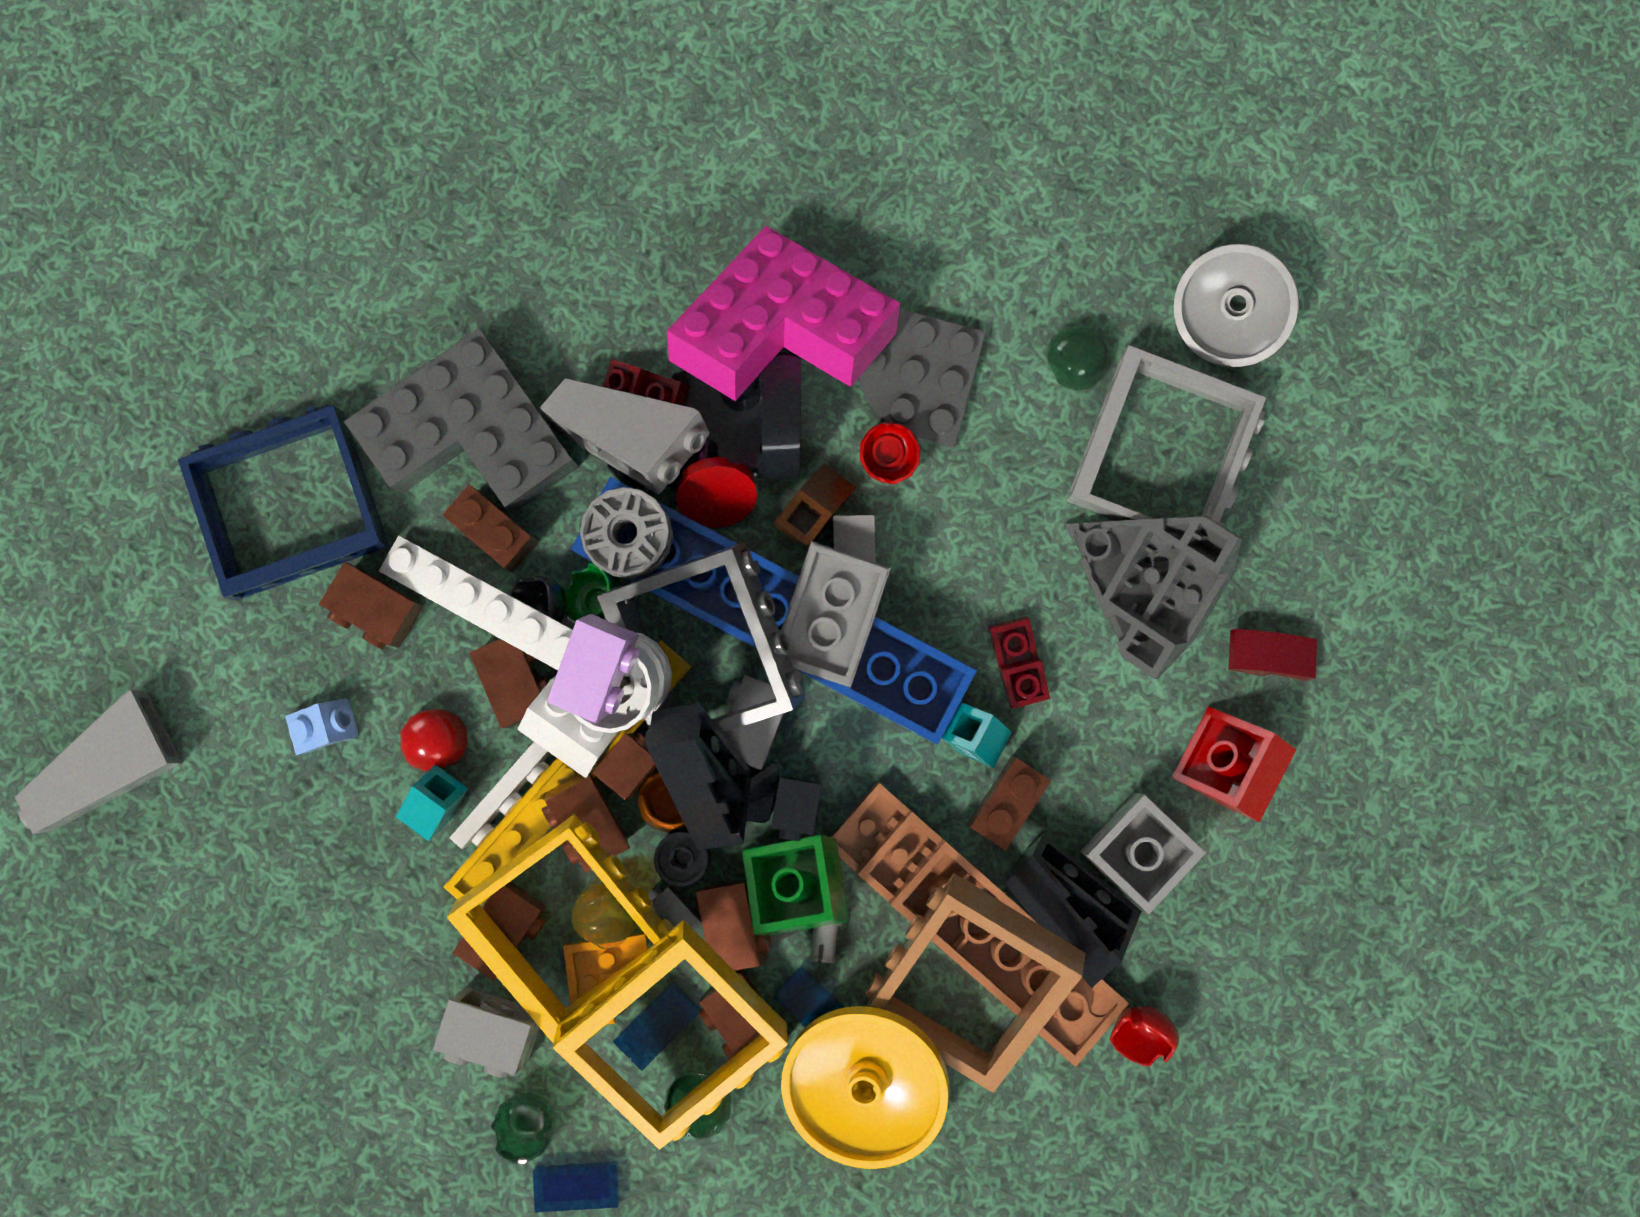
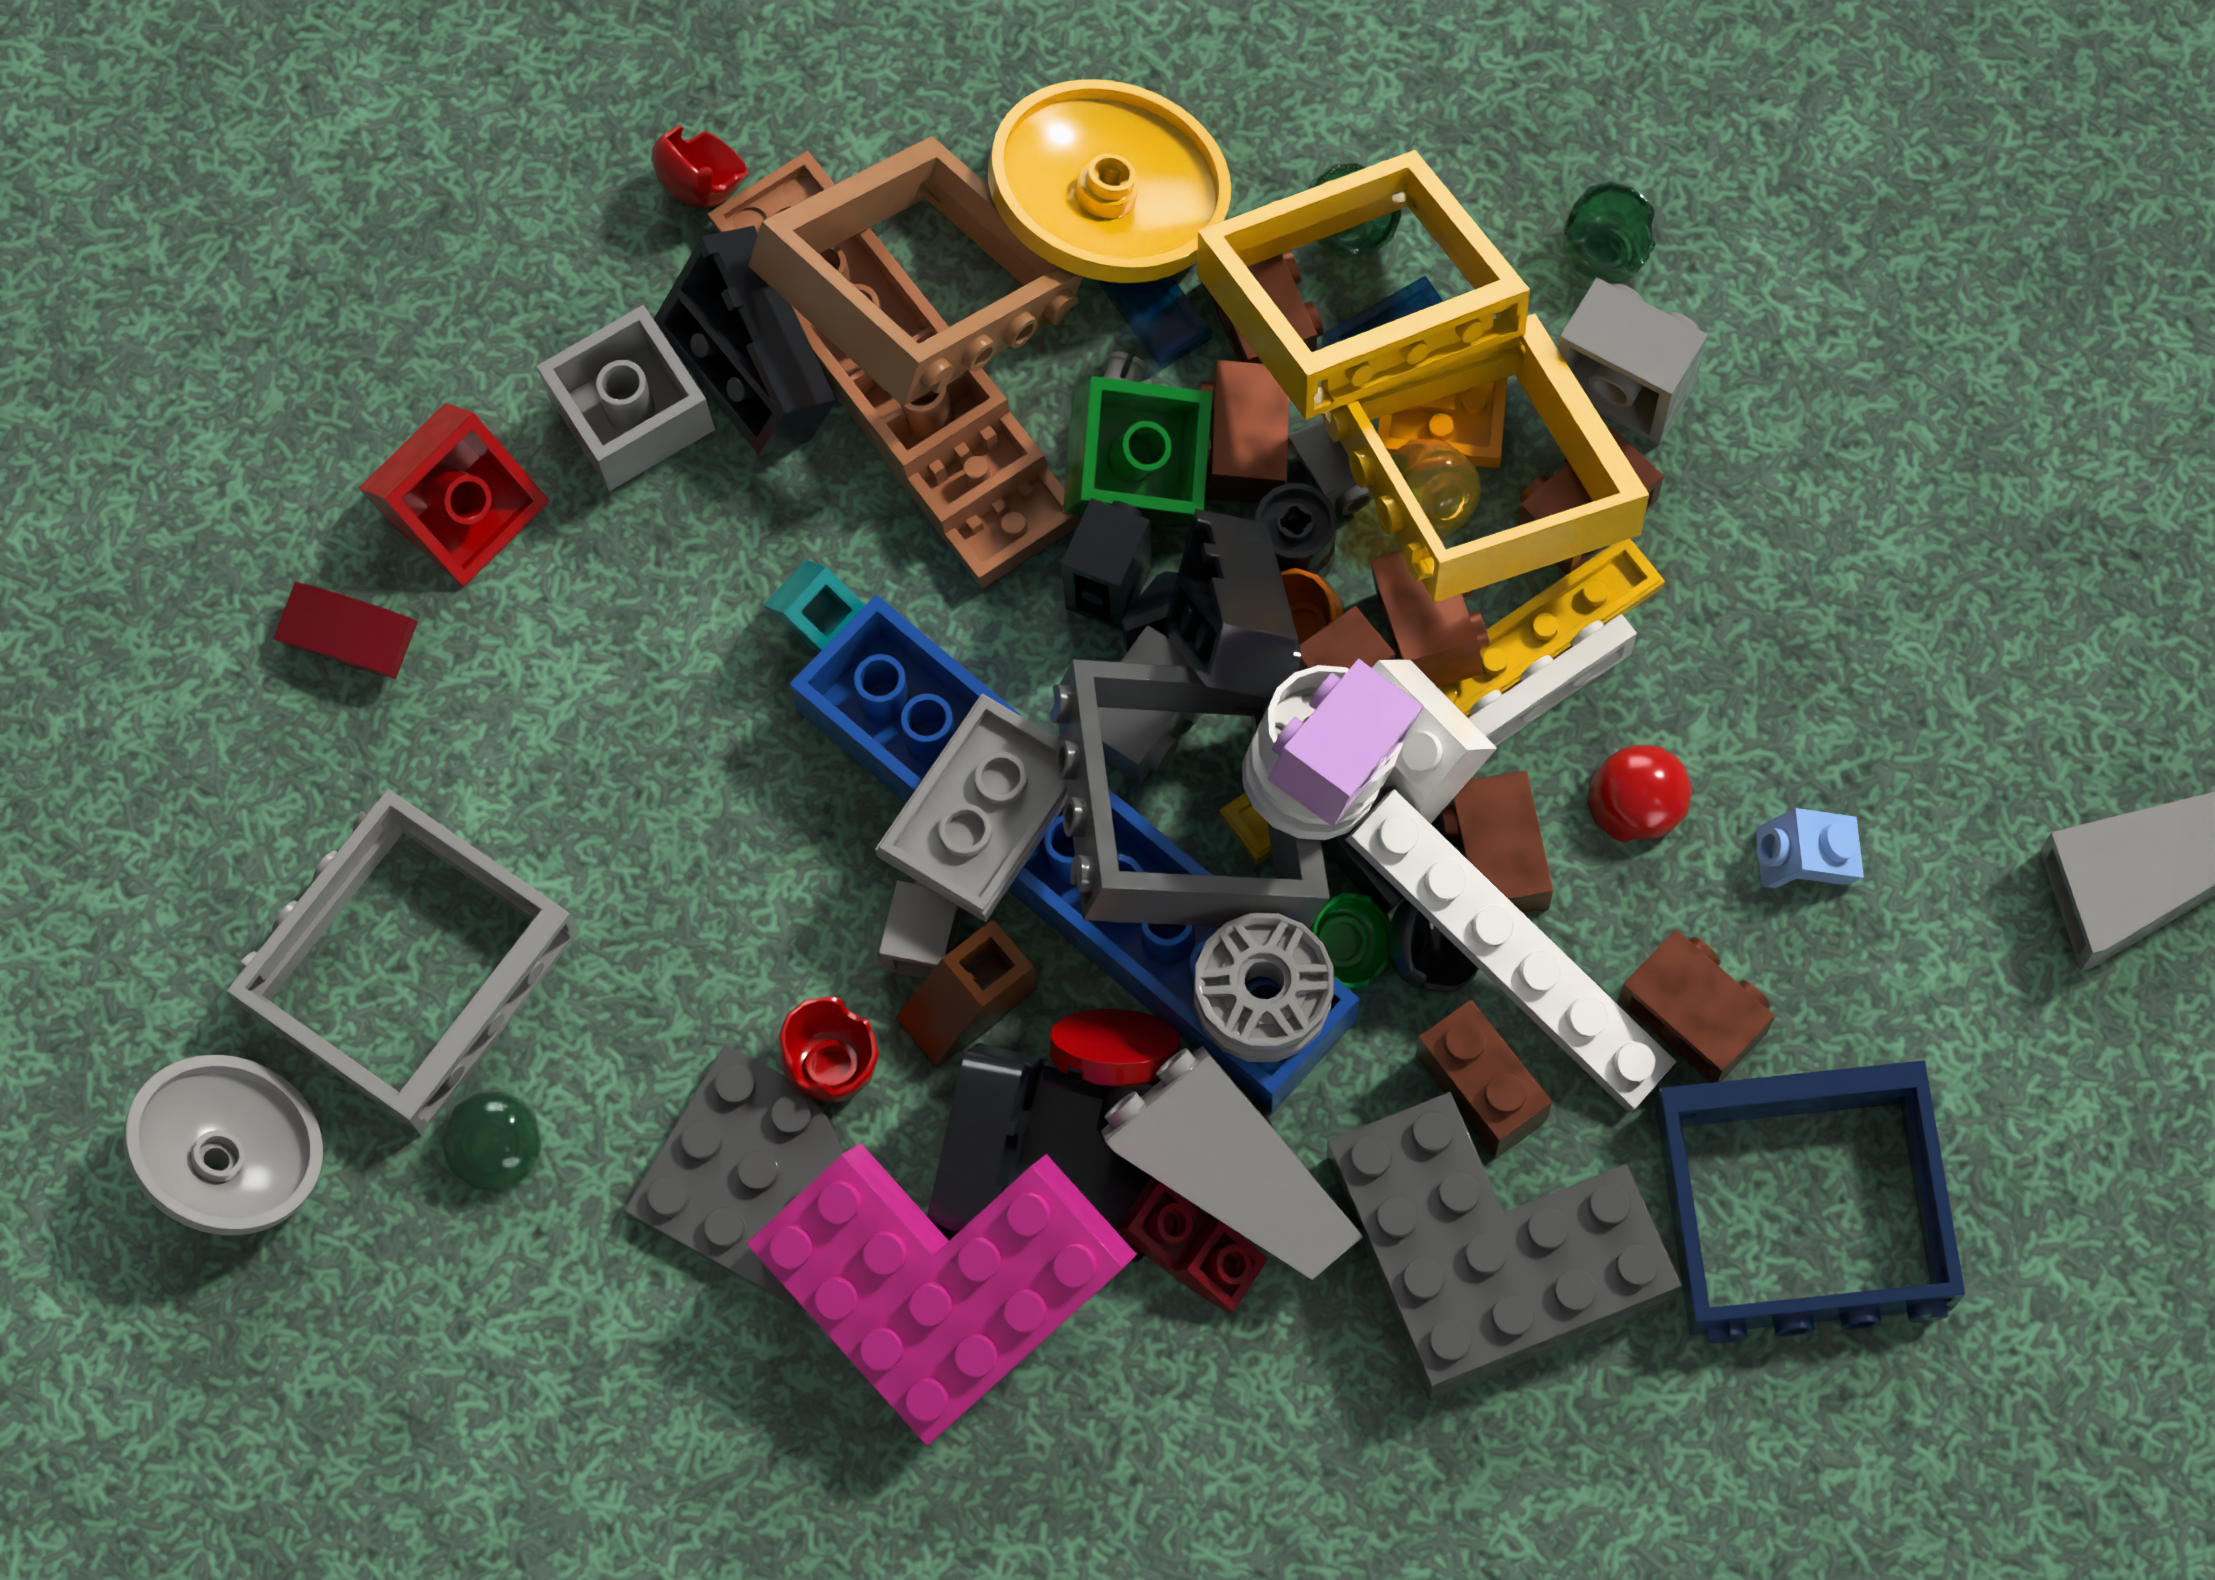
camera: 160 degrees left, 15 degrees down
(431, 802) = (1655, 692): teal brick -> none
(576, 1187) = (1552, 150): clear blue tile -> none
(1008, 802) = (798, 508): copper brick -> none
(1019, 662) = (722, 708): dark red slope -> none
(1156, 581) = (489, 763): dark grey wedge -> none

